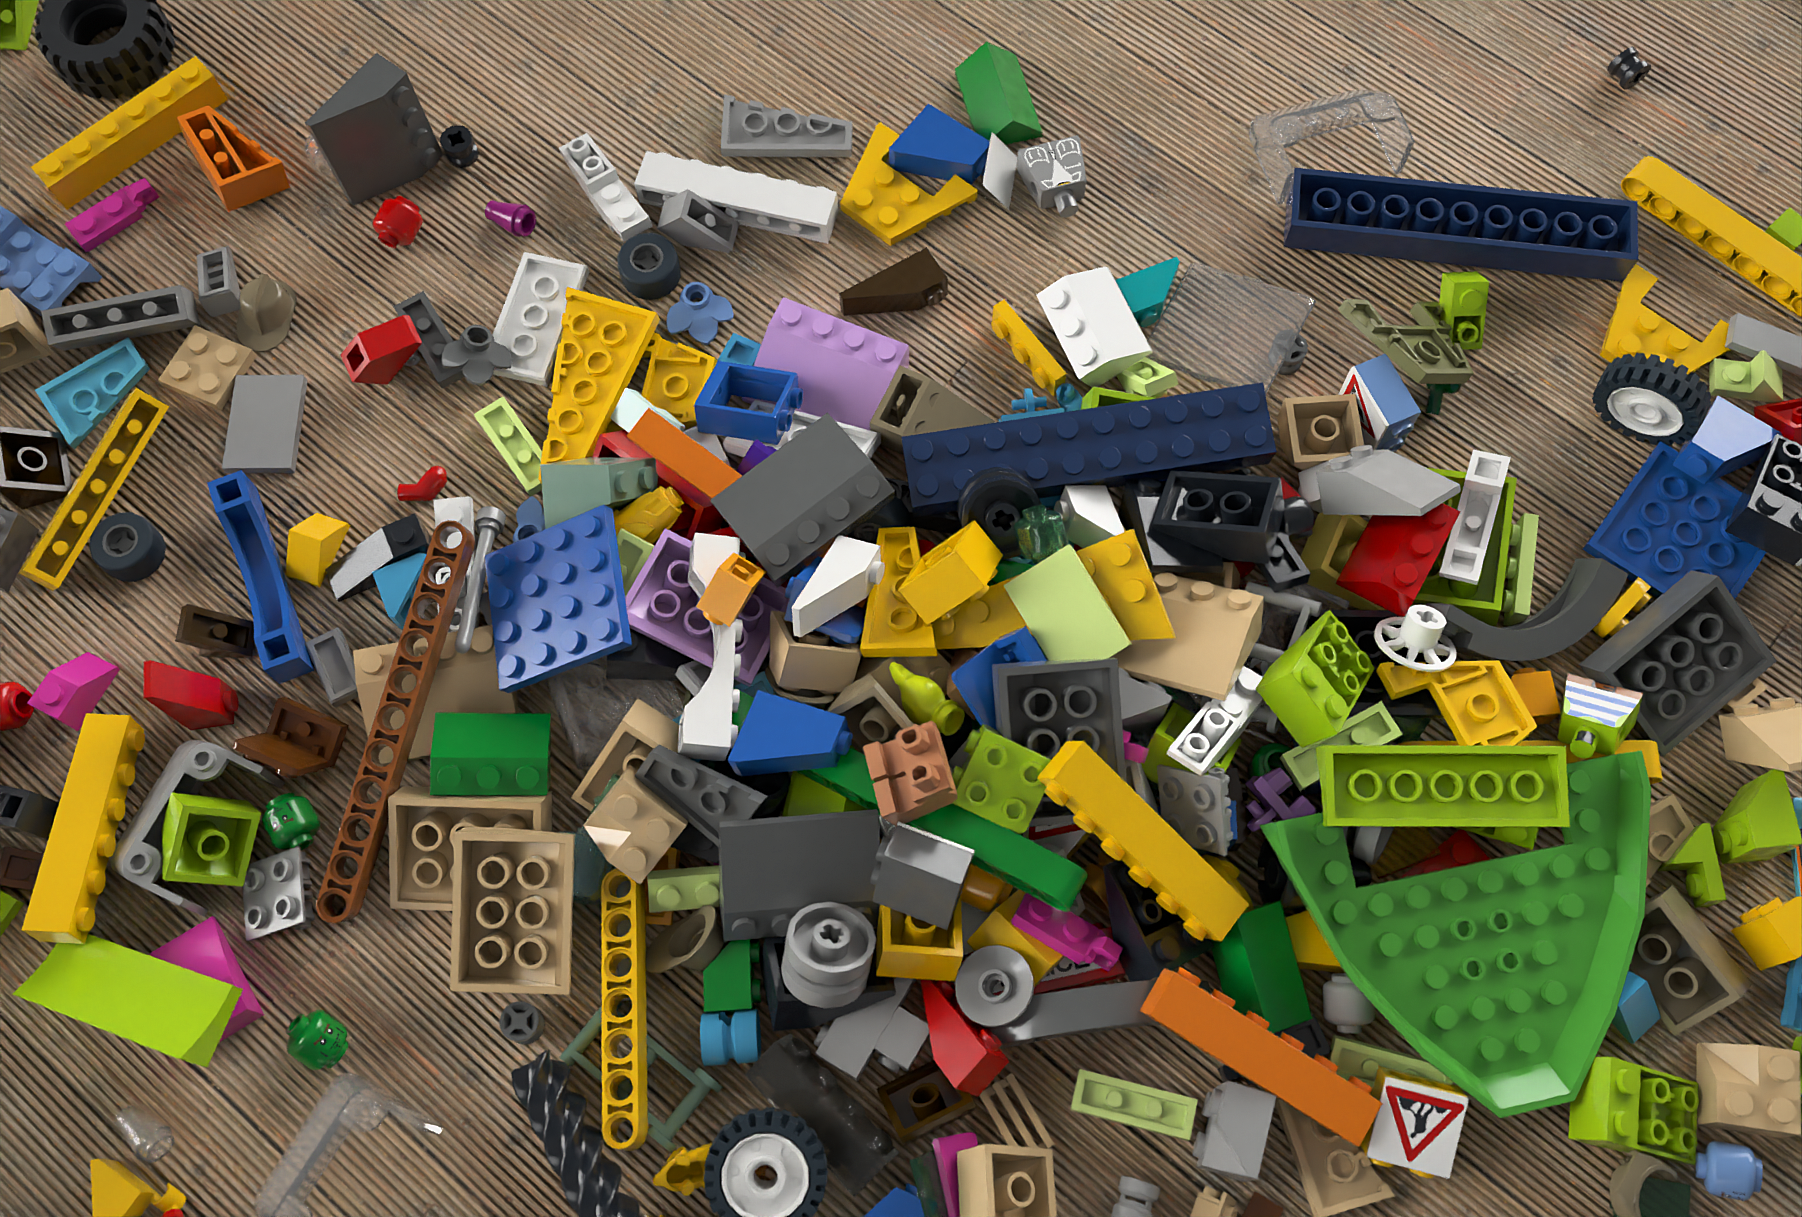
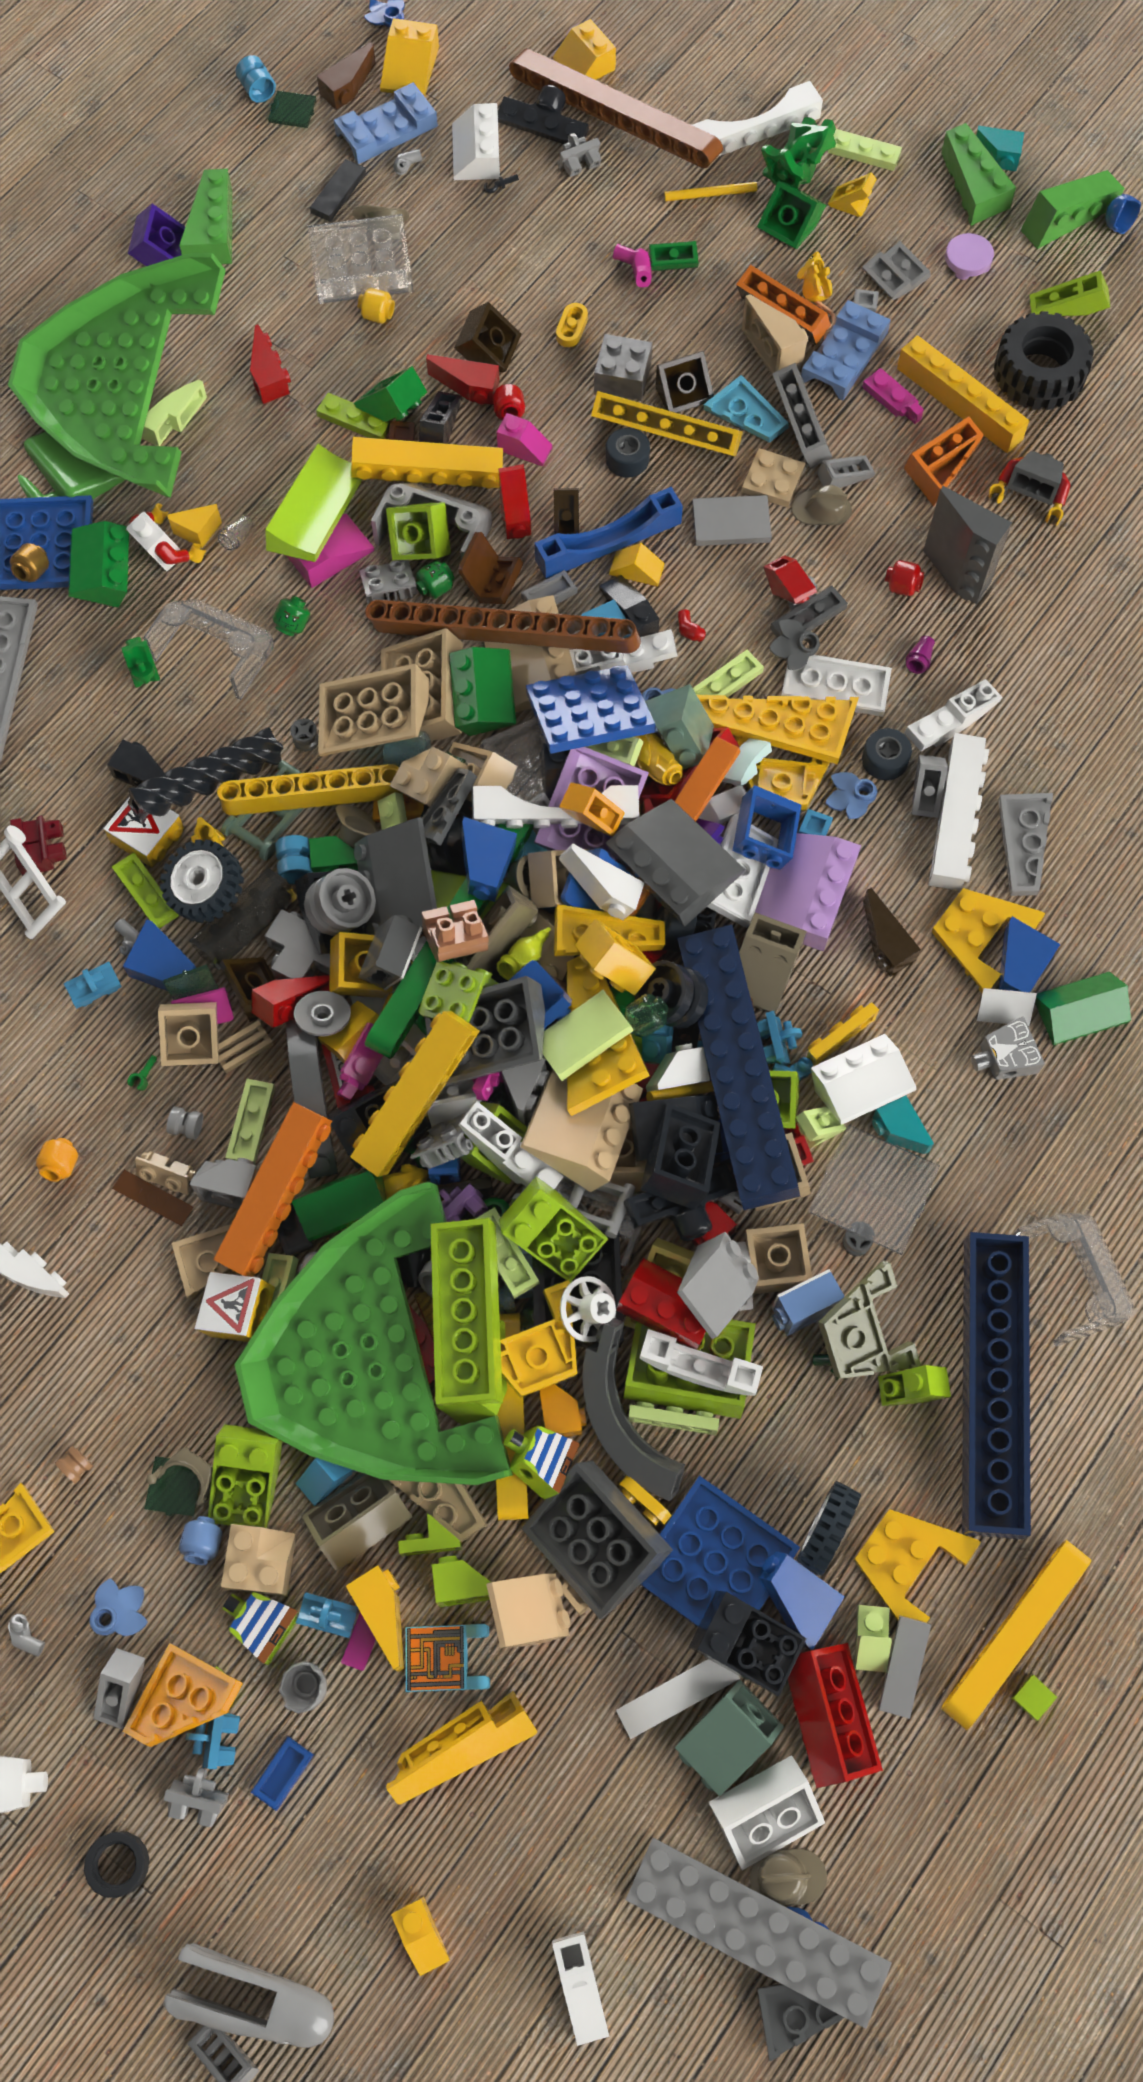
camera: 85 degrees right, 0 degrees up
(281, 60) = (1038, 478): none -> dark grey torso
(459, 154) = (976, 616): black wheel -> none
(489, 525) = (660, 671): light grey piece -> none

